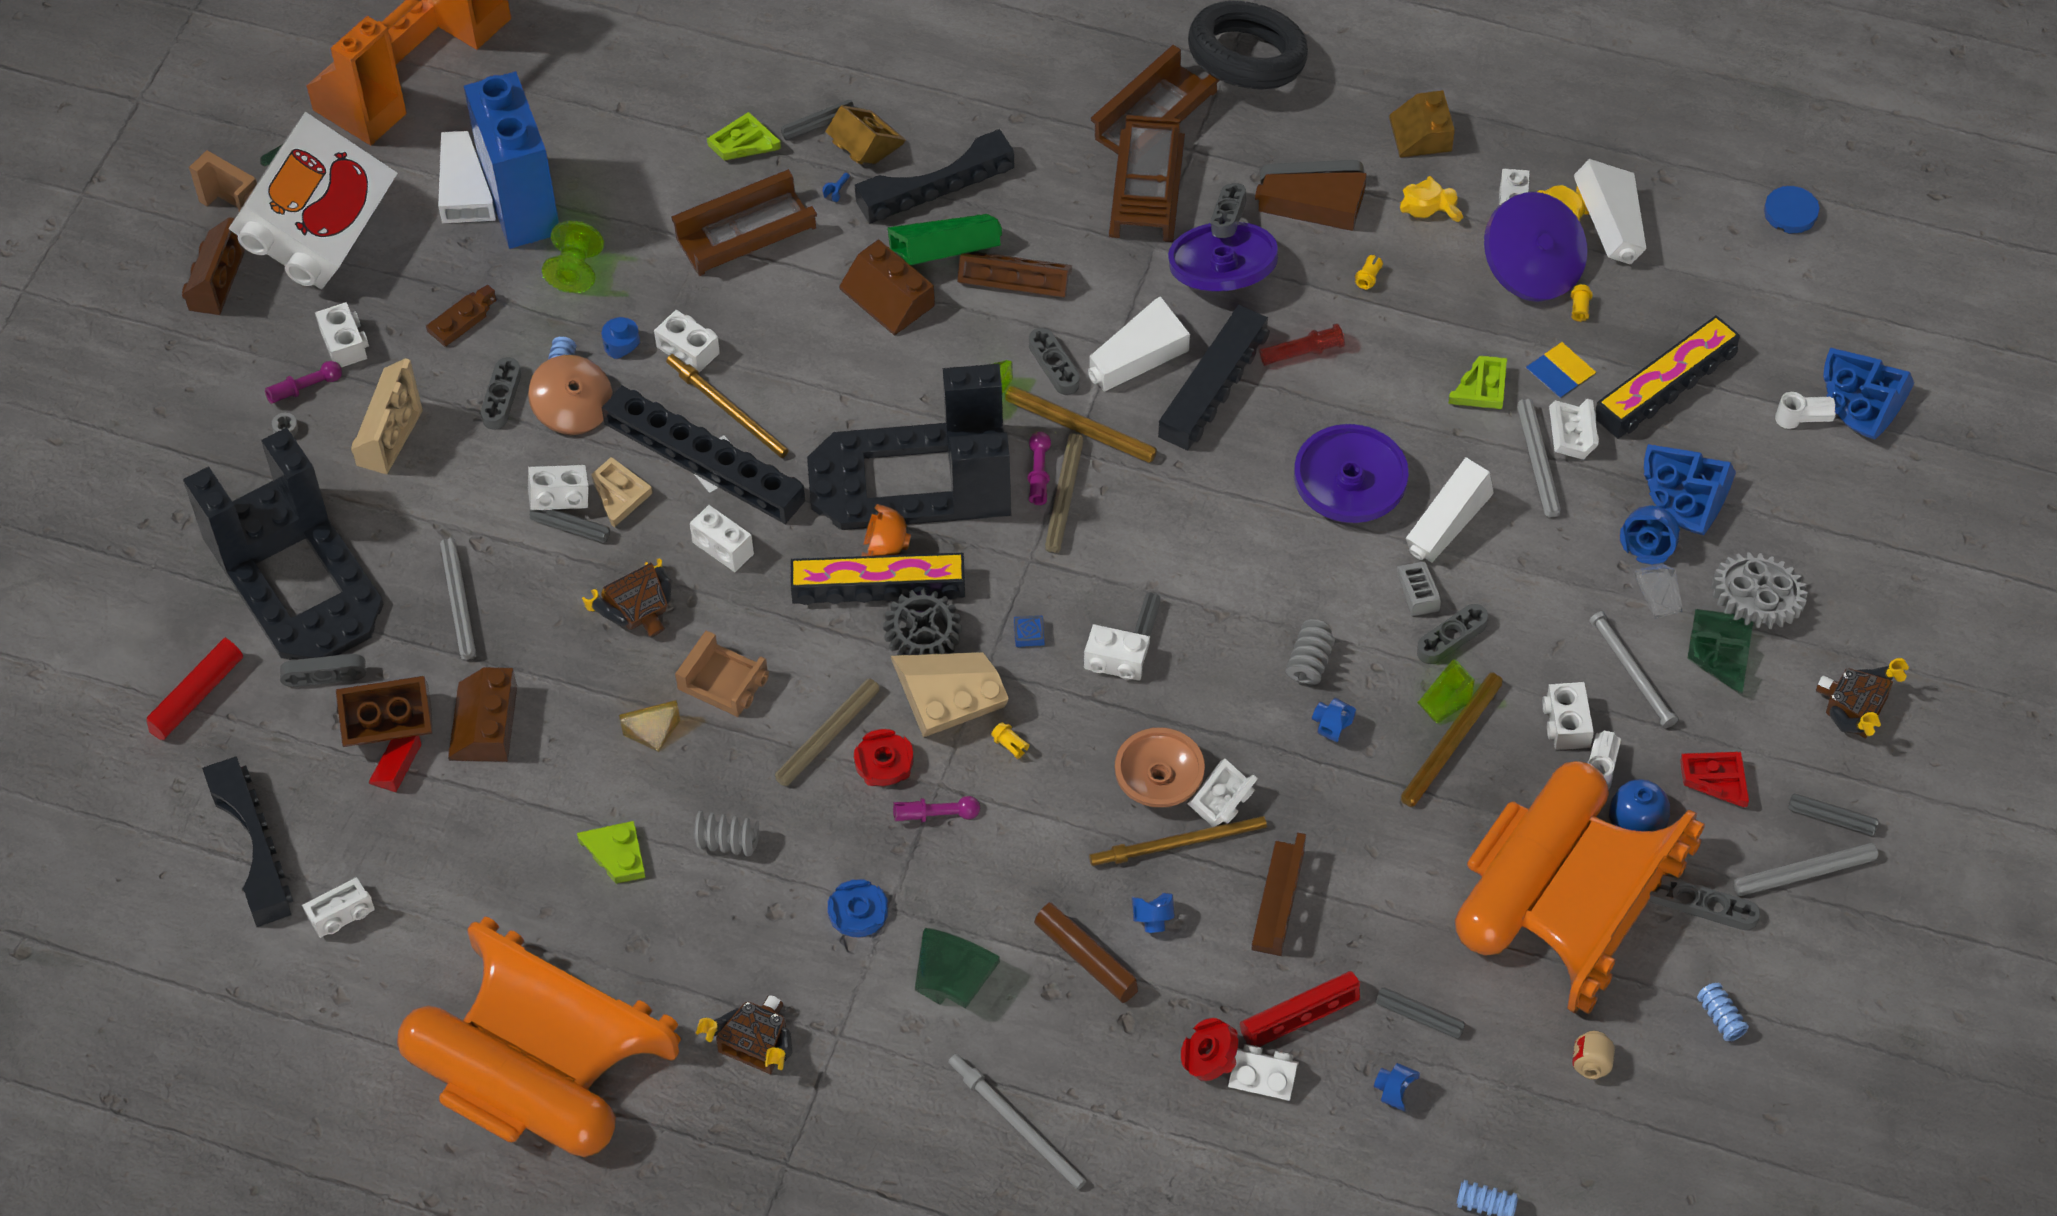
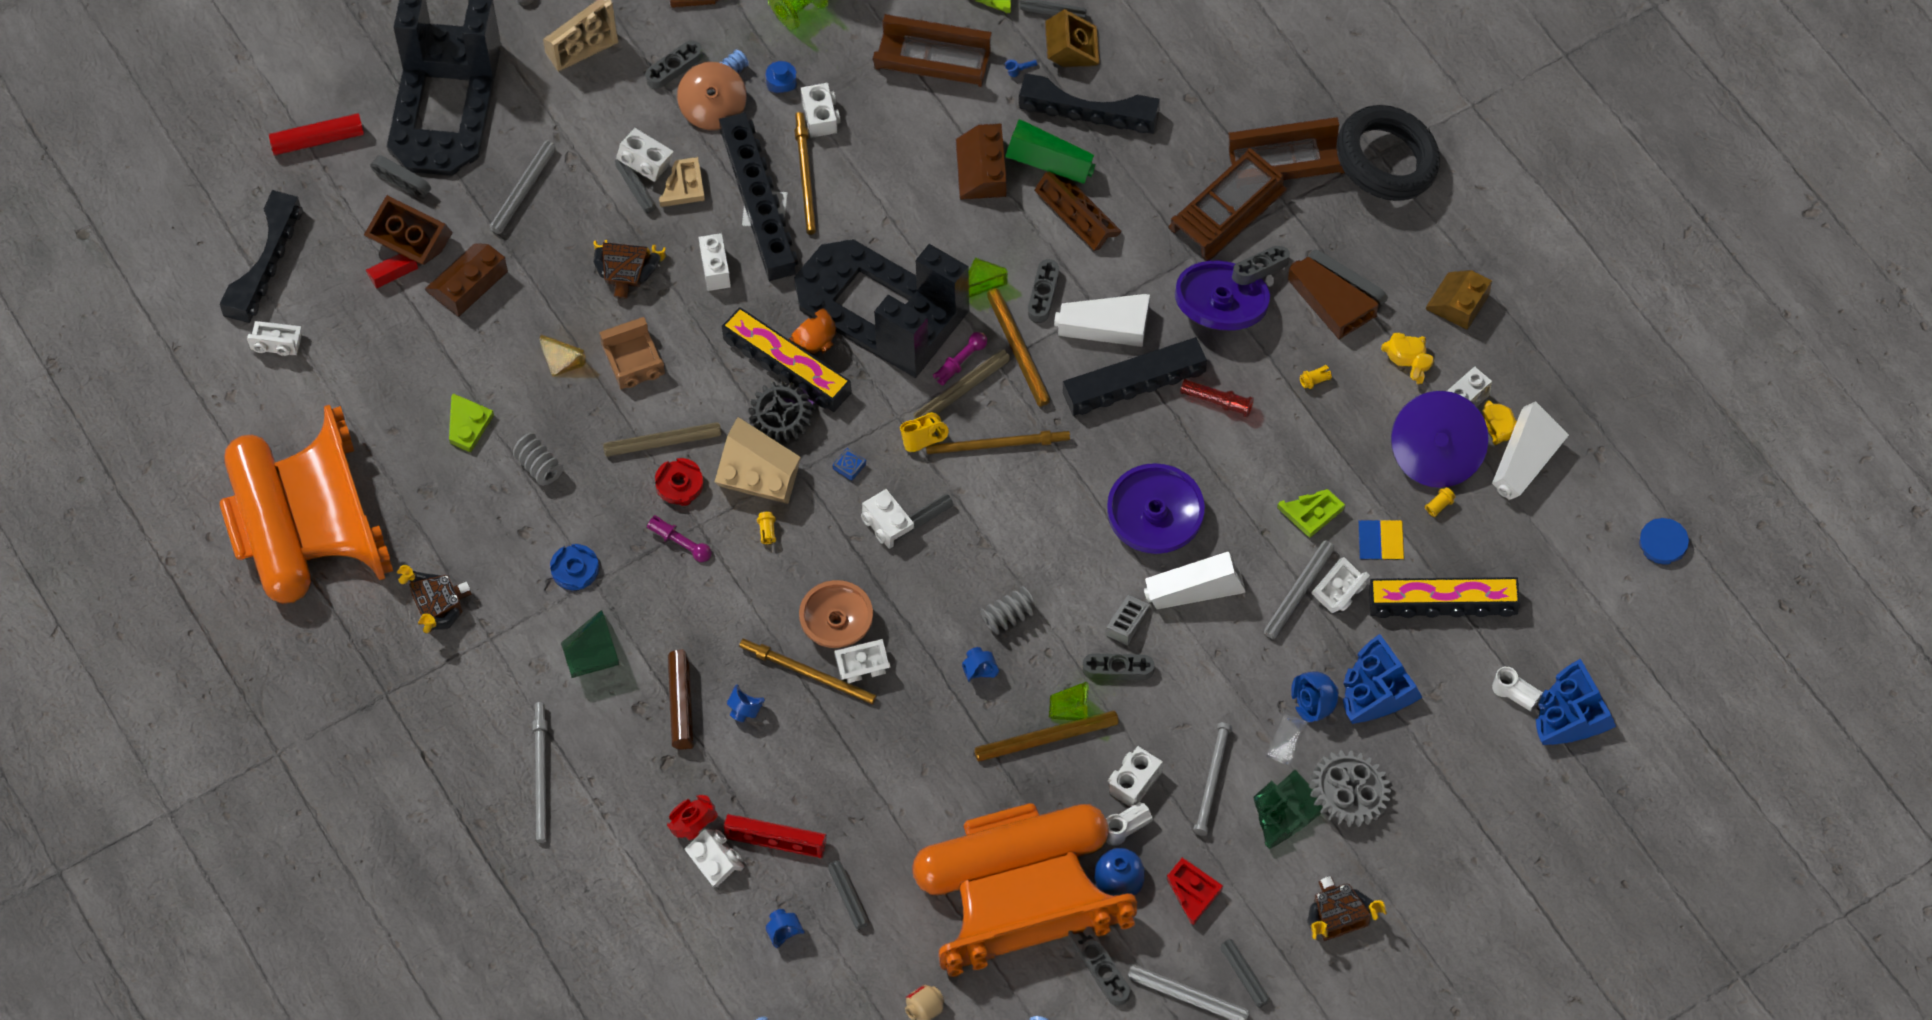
camera: 40 degrees right, 5 degrees up
(1073, 553) = (920, 432): none -> yellow piece
(1183, 486) = (1044, 438): none -> pearl gold bar
(1279, 896) = (834, 754): reddish brown fence -> none

